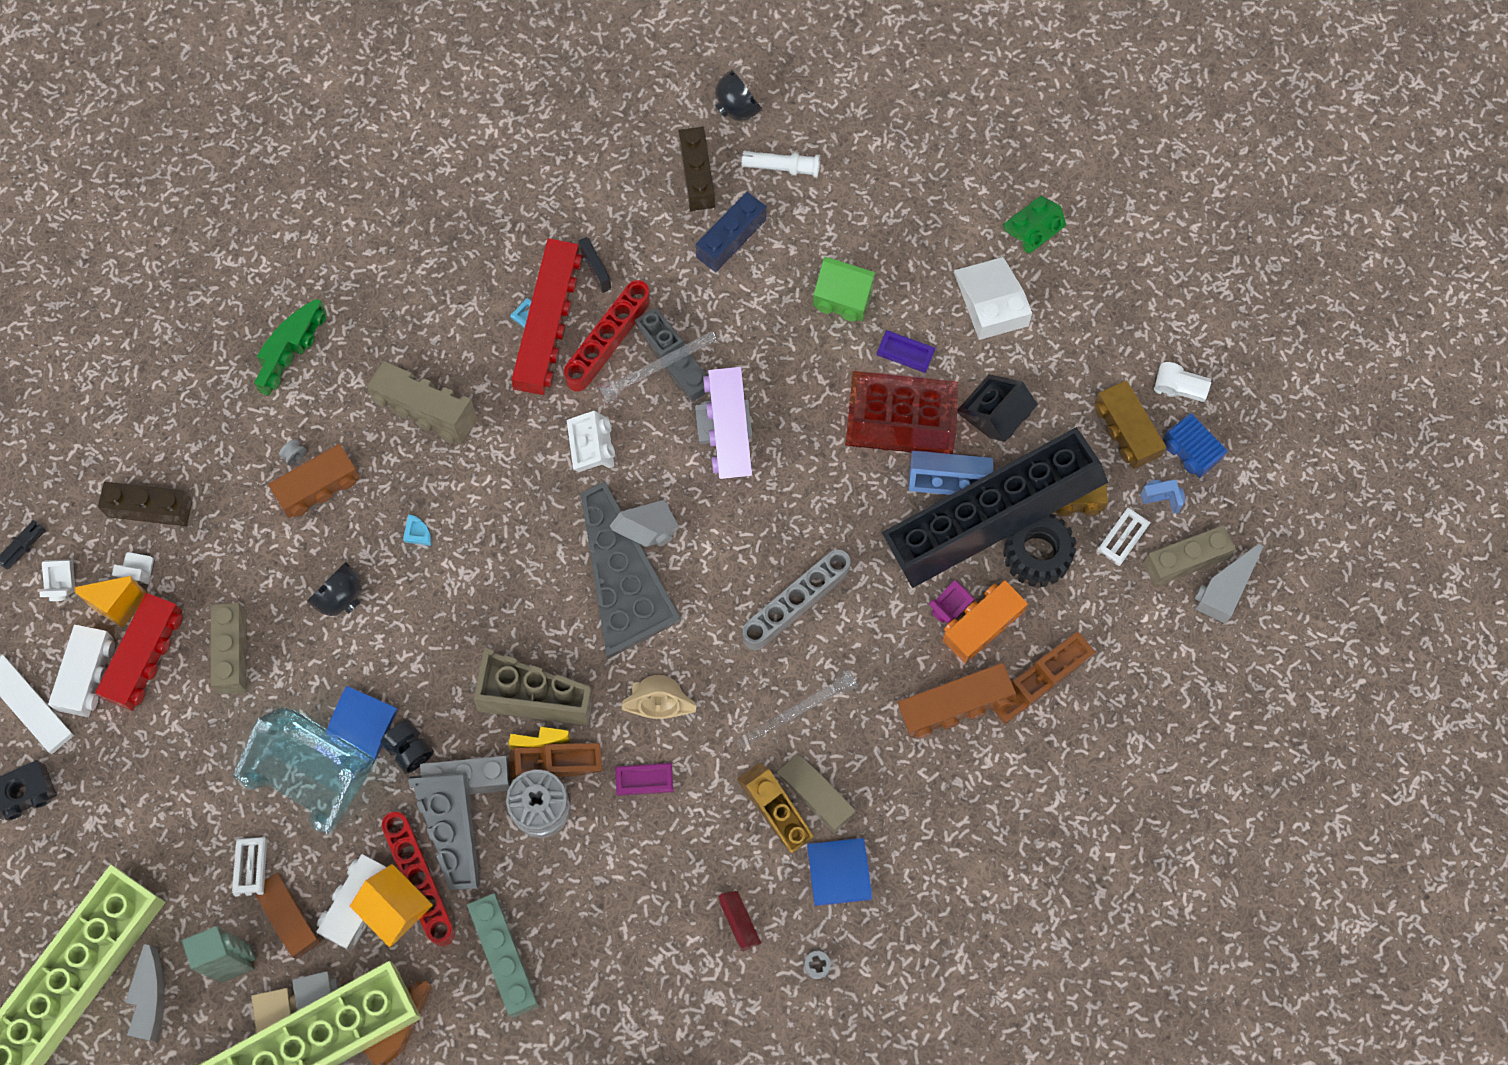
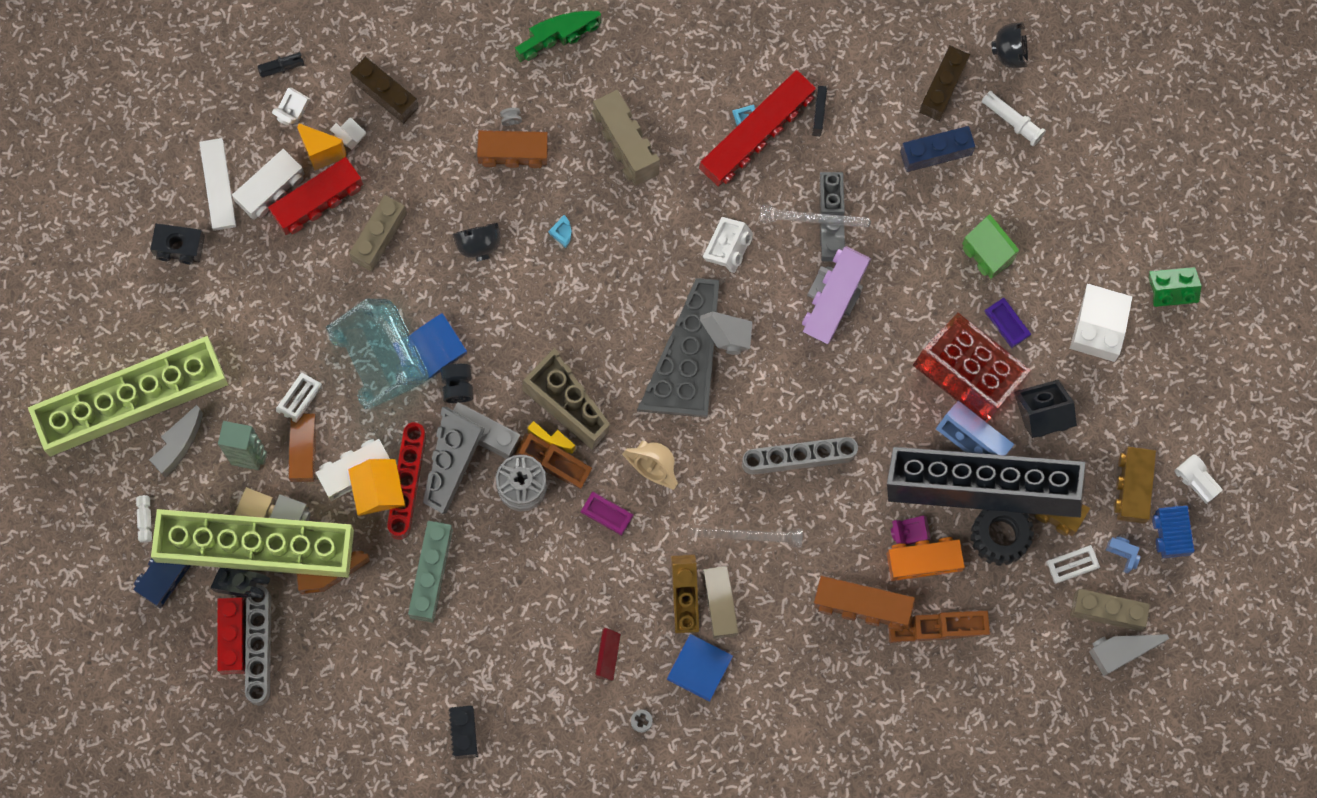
camera: 30 degrees right, 5 degrees up
(608, 324) = (799, 163): red beam -> none

